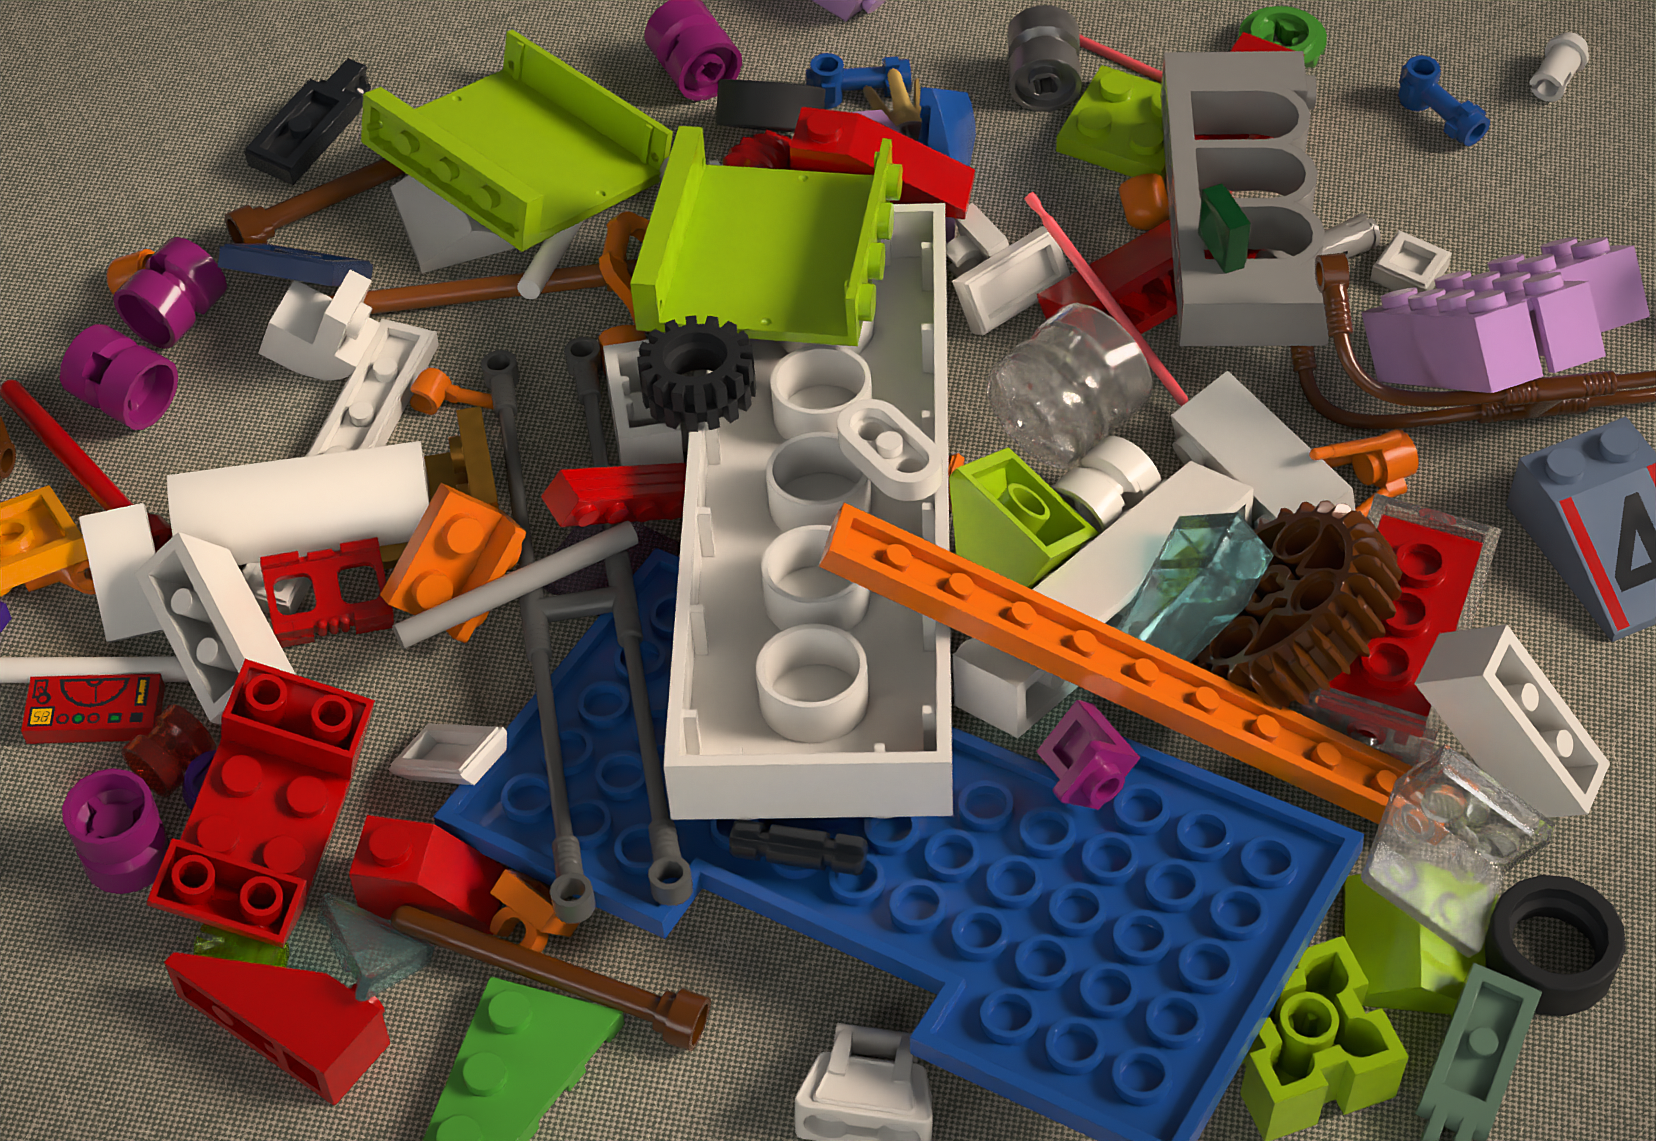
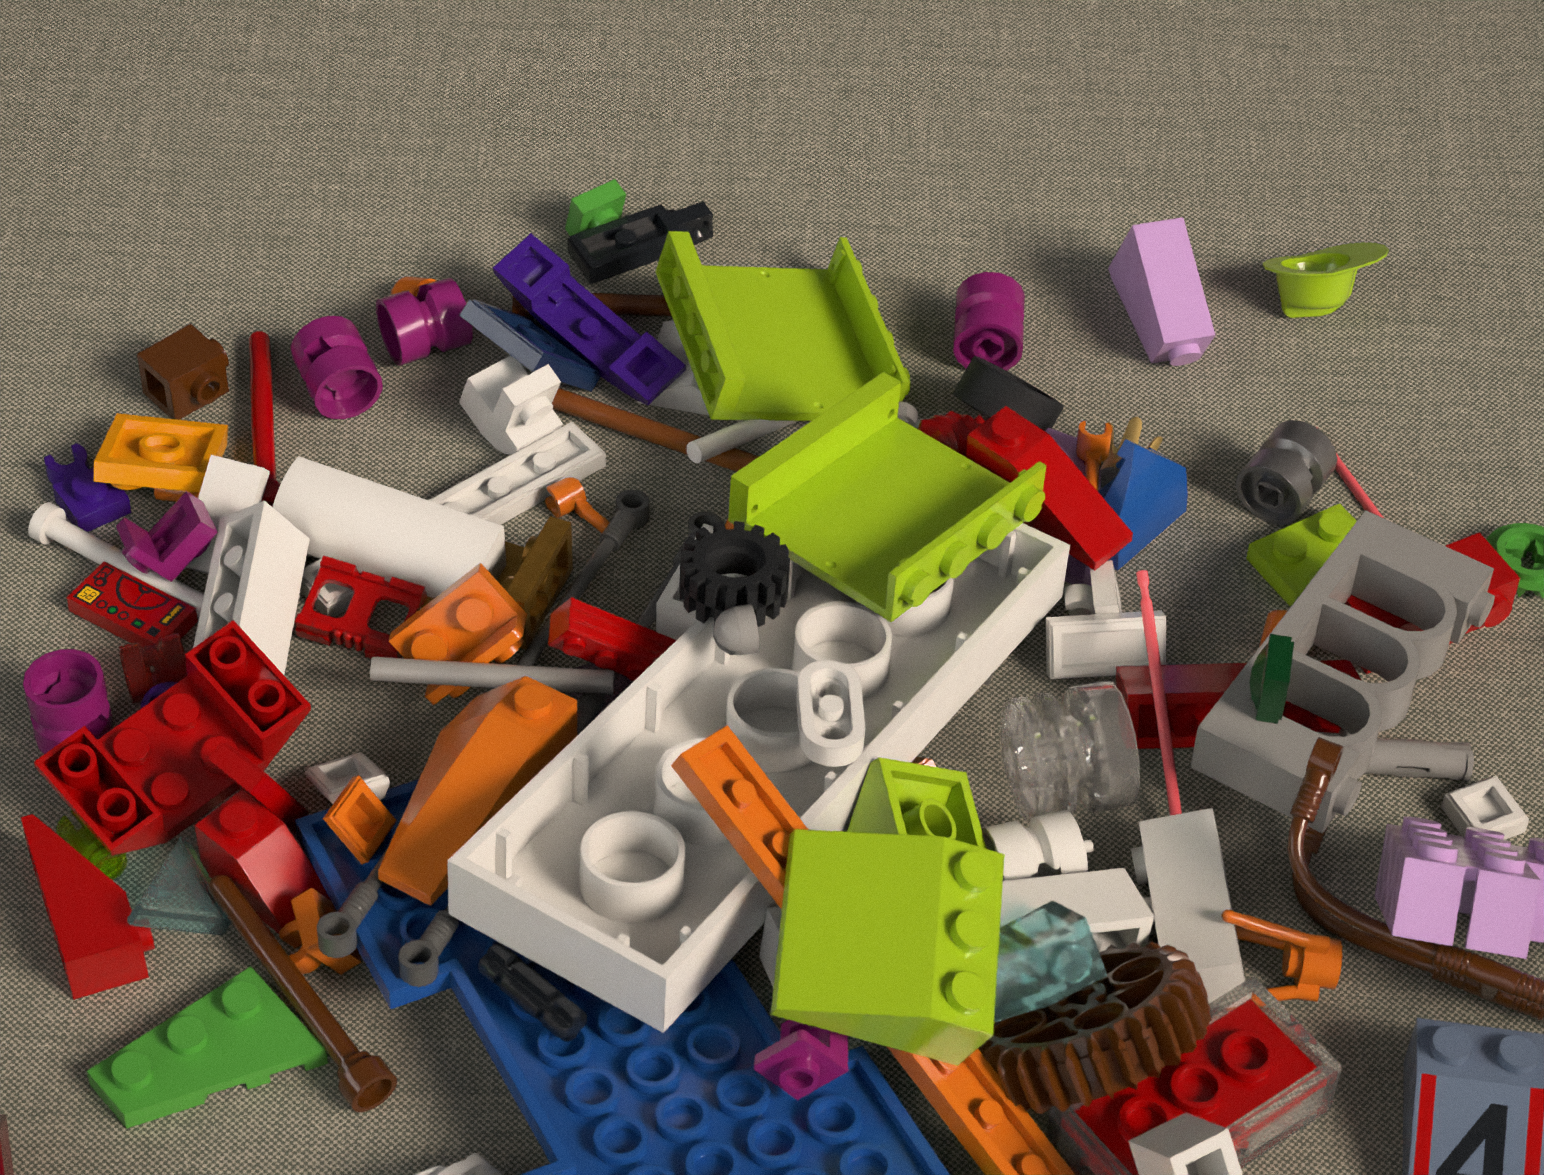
camera: 30 degrees right, 5 degrees down
(95, 618) = (172, 541): none -> magenta bracket
(251, 113) = (595, 207): none -> bright green plate
(329, 223) = (584, 324): none -> dark purple slope
(363, 797) = (257, 784): none -> red tile
(505, 782) = (359, 819): none -> orange slope
(587, 685) = (473, 774): none -> orange wedge
(745, 419) = (737, 631): none -> light grey hinge
(829, 73) = (1086, 403): blue bar -> none
(882, 110) = (1093, 450): none -> orange hand
(1111, 618) = (891, 940): none -> lime slope

